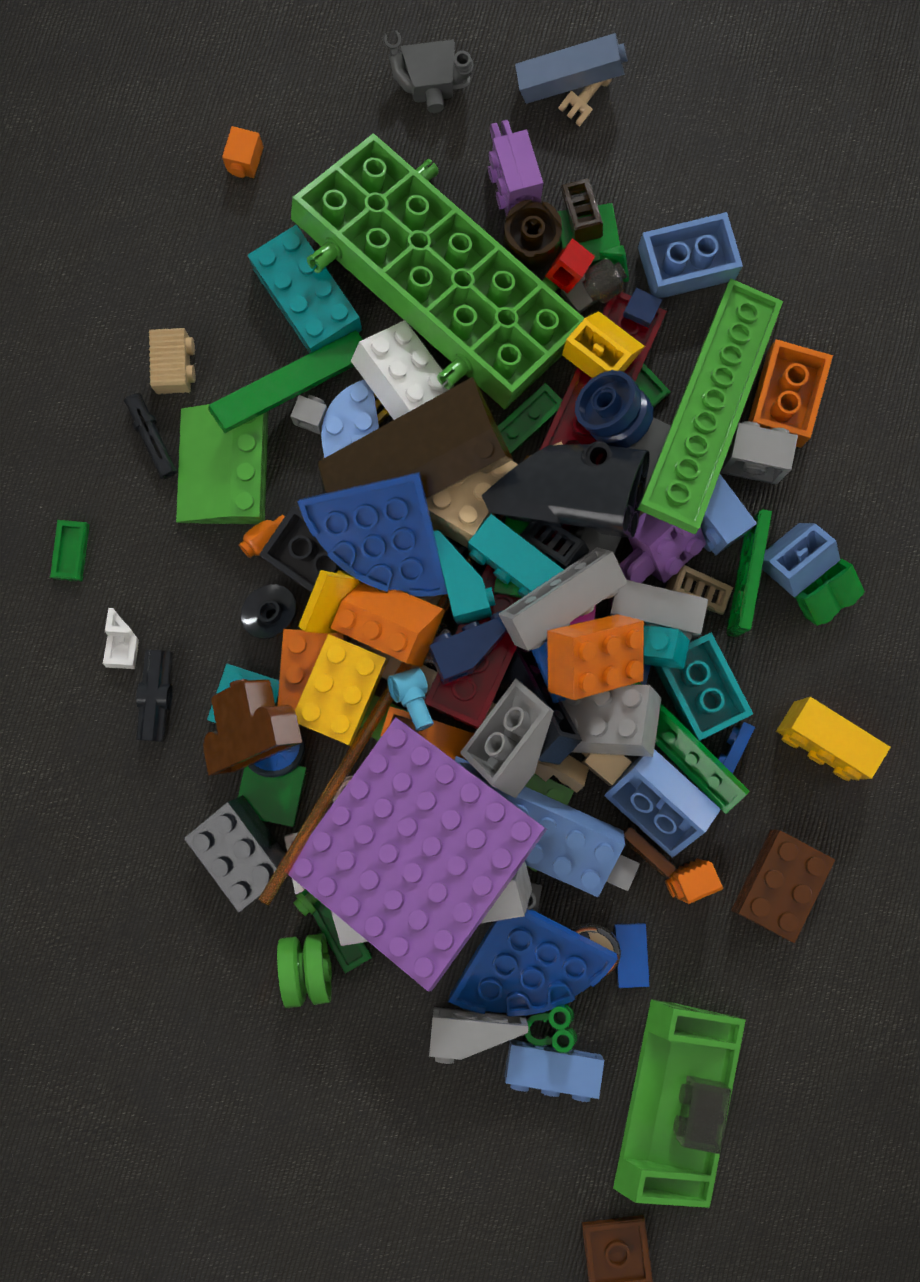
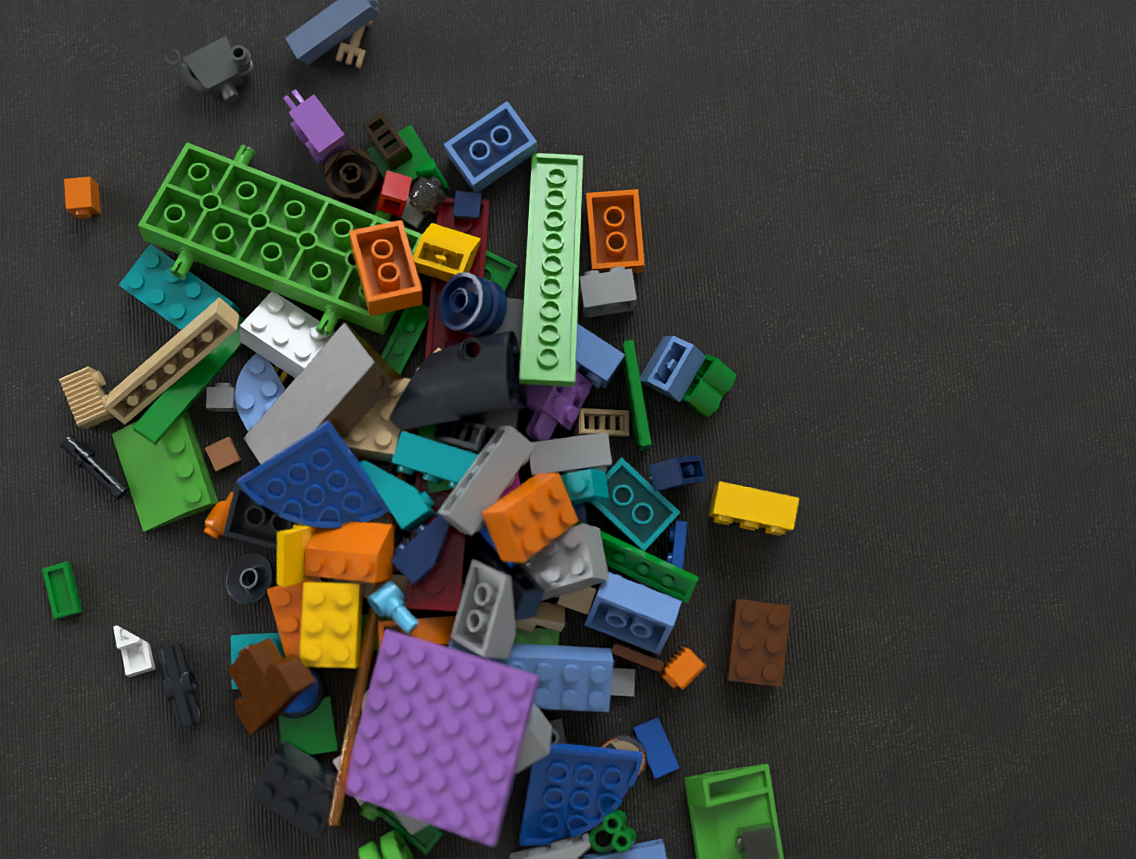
camera: 20 degrees left, 0 degrees up
(275, 352) = (172, 361): none -> tan brick
(288, 472) = (223, 454): none -> nougat tile
(537, 336) = (386, 268): none -> orange brick
(764, 671) = (677, 473): none -> dark blue brick

